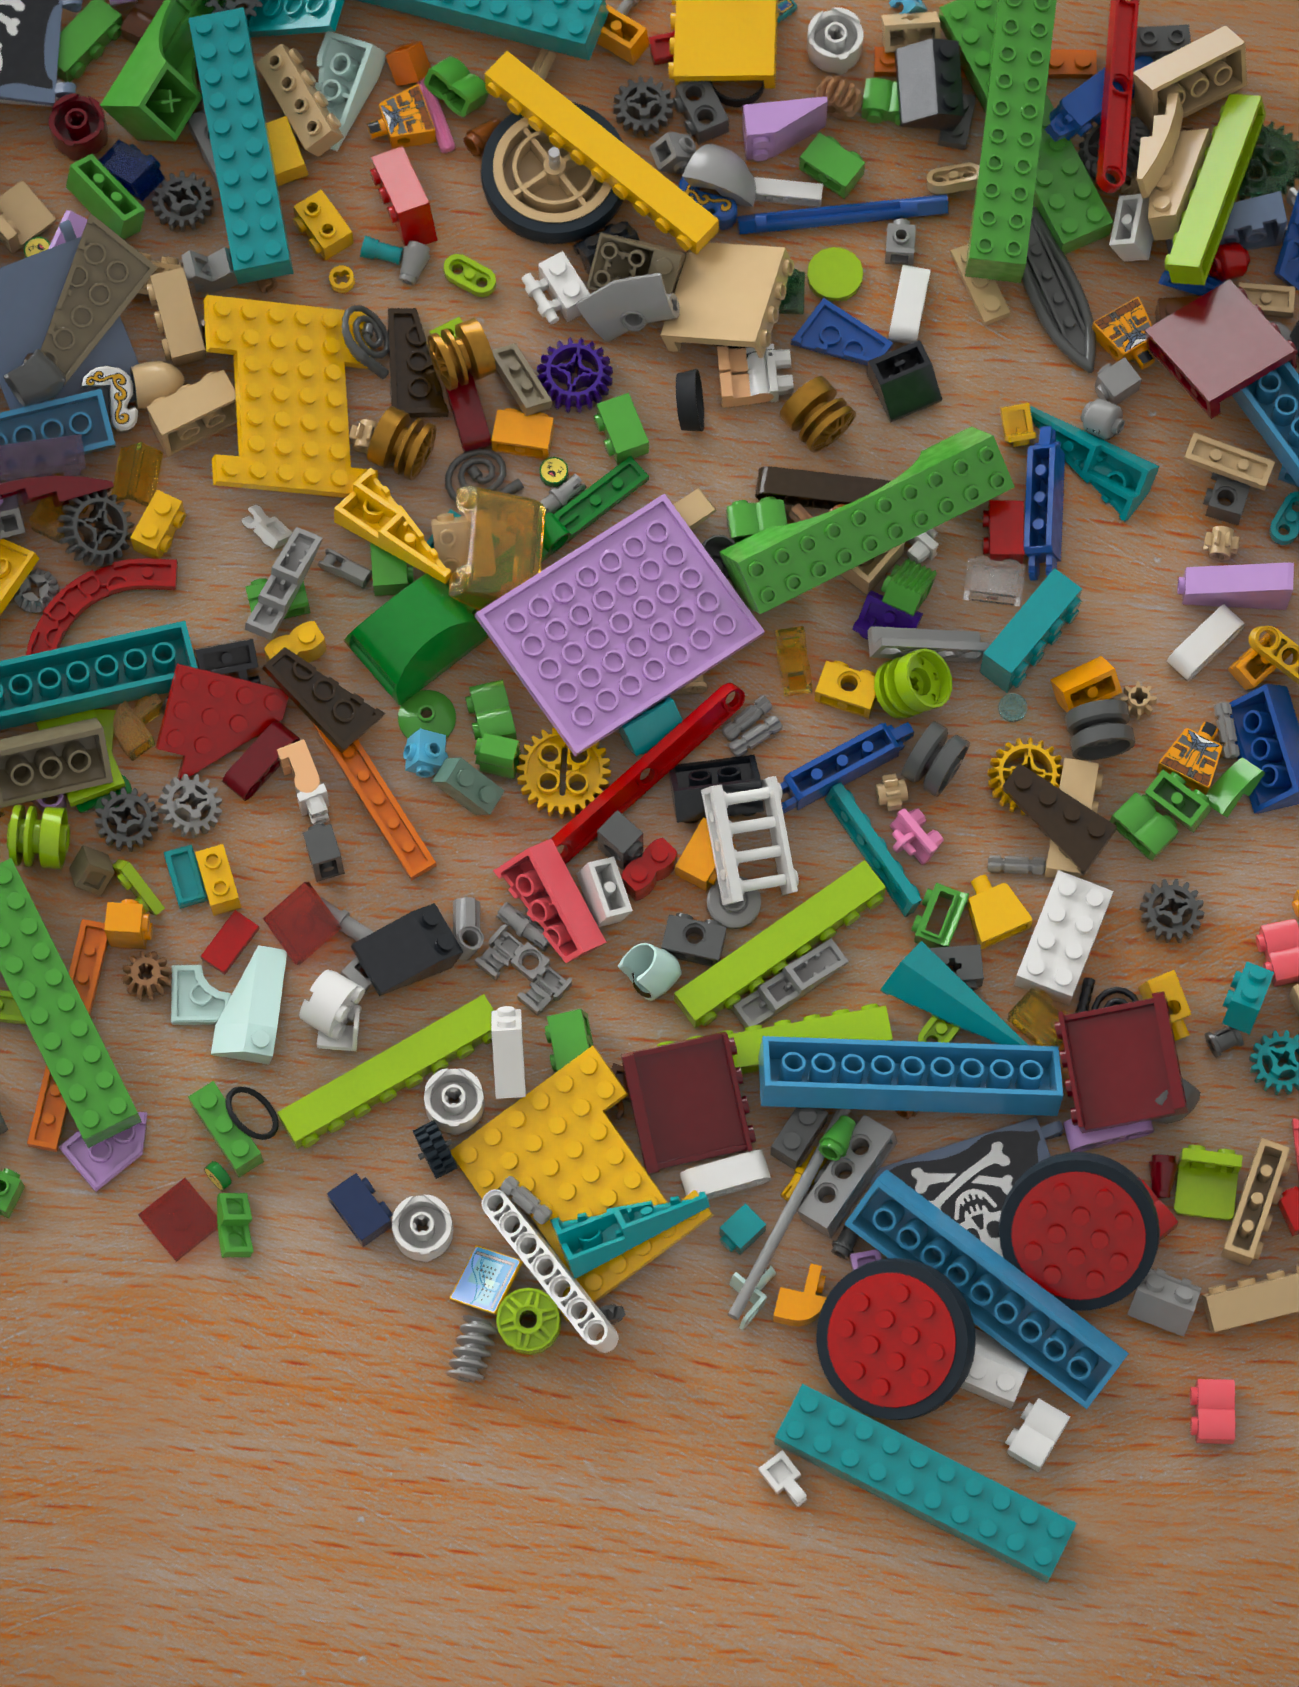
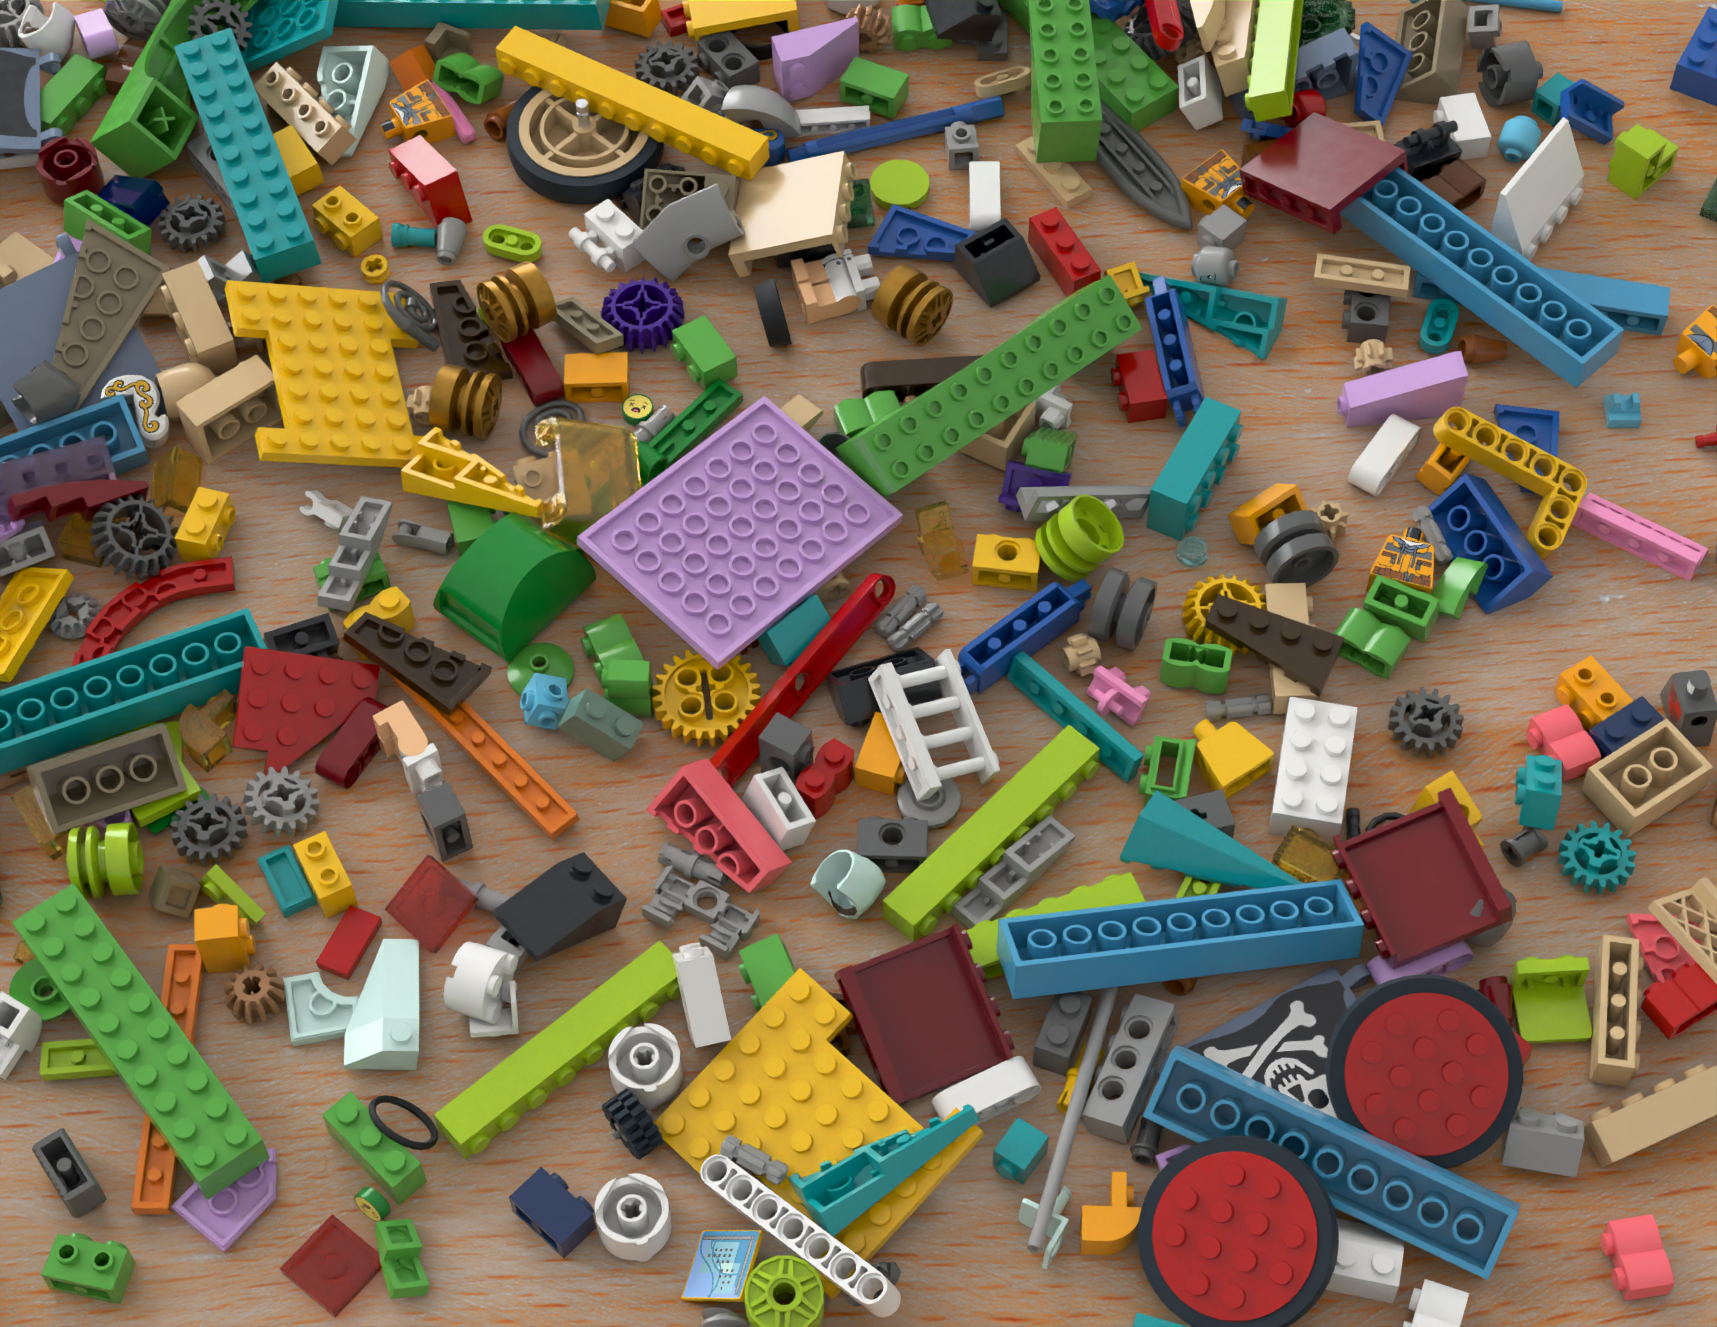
camera: 10 degrees left, 15 degrees down
(443, 42) = (446, 41): none -> dark tan panel
(467, 925) = (626, 874): light grey piece -> none
(837, 1139) = (1110, 1025): bright green cone -> none
(967, 382) = (1062, 251): none -> red brick
(992, 824) = (1195, 665): none -> bright green brick
(994, 581) = (1140, 434): clear brick -> none

